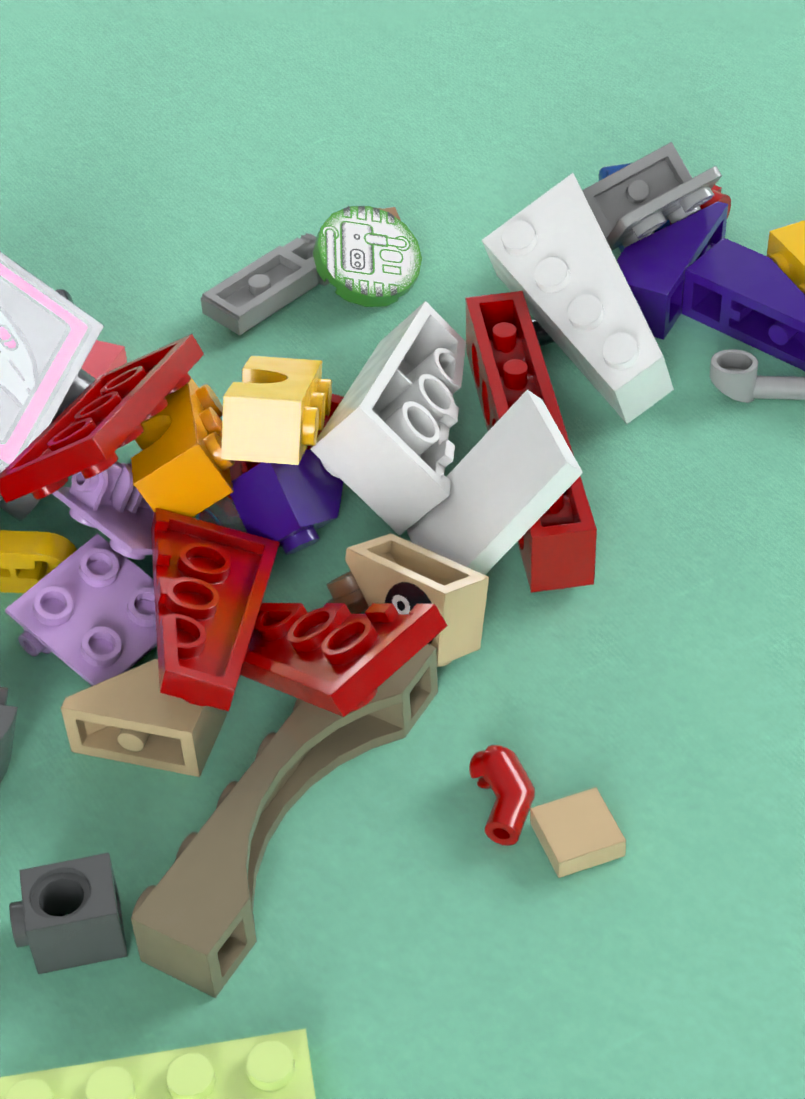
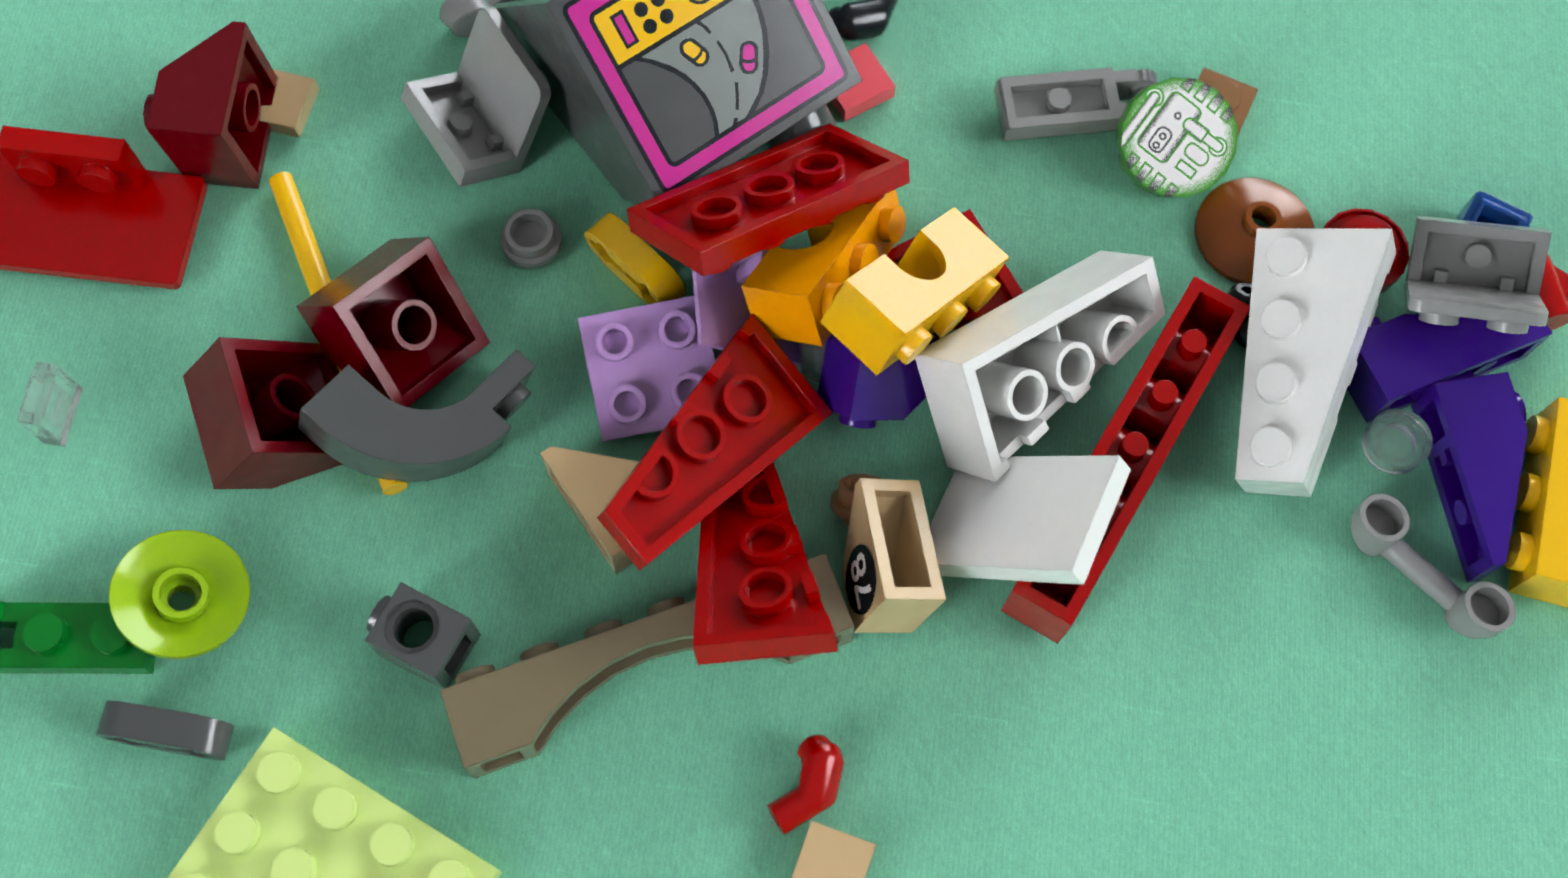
camera: 35 degrees right, 25 degrees up
(457, 277) = (1226, 226): none -> dark orange dish
(695, 331) = (1397, 441): none -> clear tile

